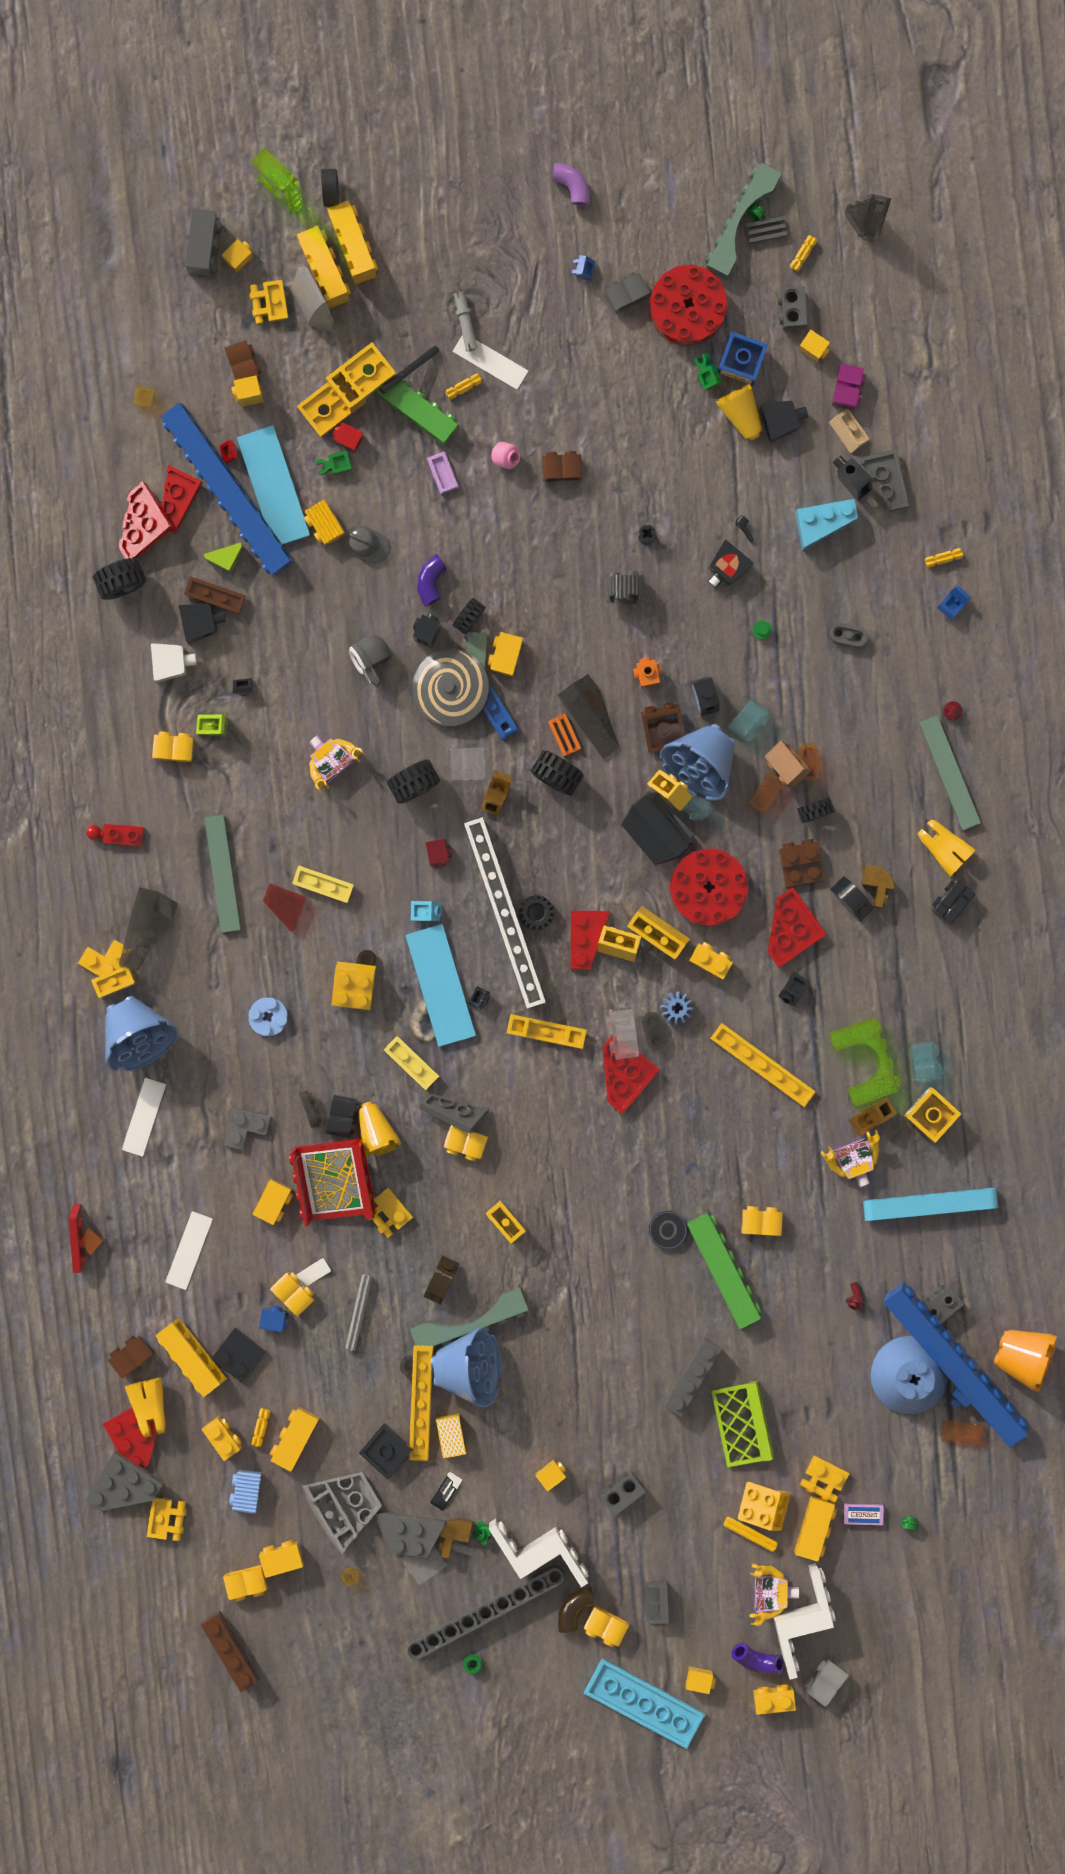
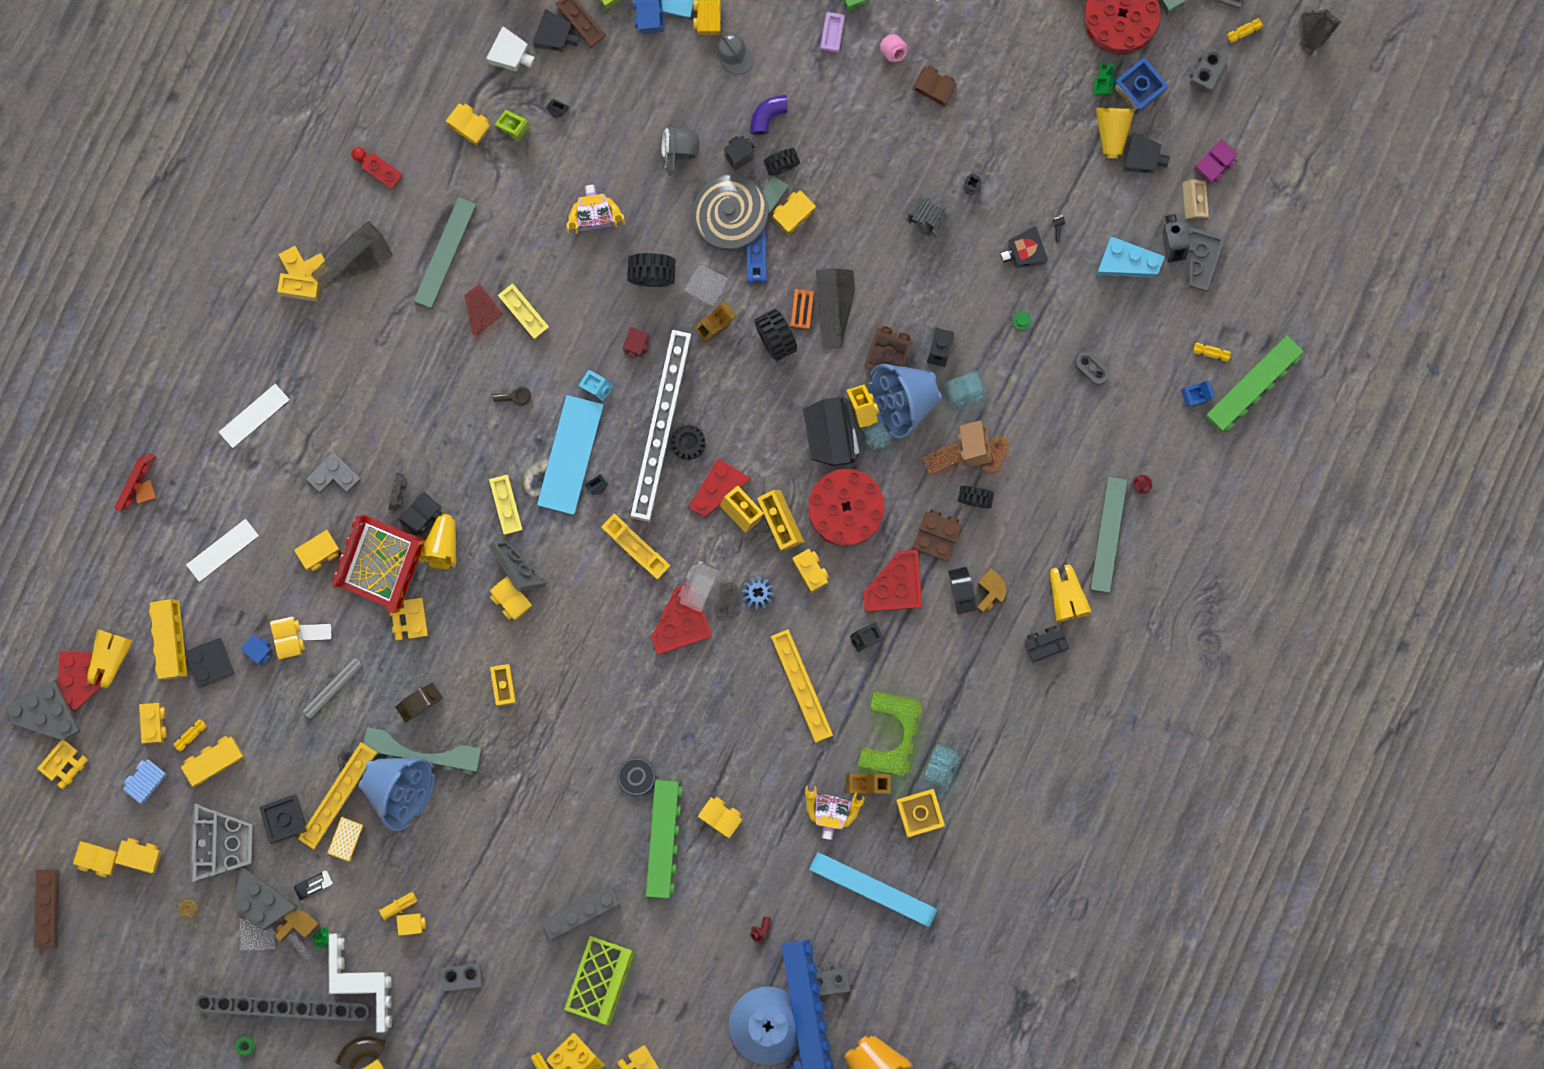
camera: 30 degrees right, 5 degrees down
(130, 1357) = (117, 609): reddish brown brick -> none
(135, 1035) = (289, 342): medium blue cone -> none
(278, 1021) = (416, 402): light blue plate -> none
(353, 985) = (497, 410): yellow brick -> none
(530, 1465) = (398, 905): none -> yellow axle
(651, 679) = (900, 304): orange brick -> none
(814, 346) = (1207, 112): yellow brick -> none
(997, 564) = (1253, 384): none -> bright green brick

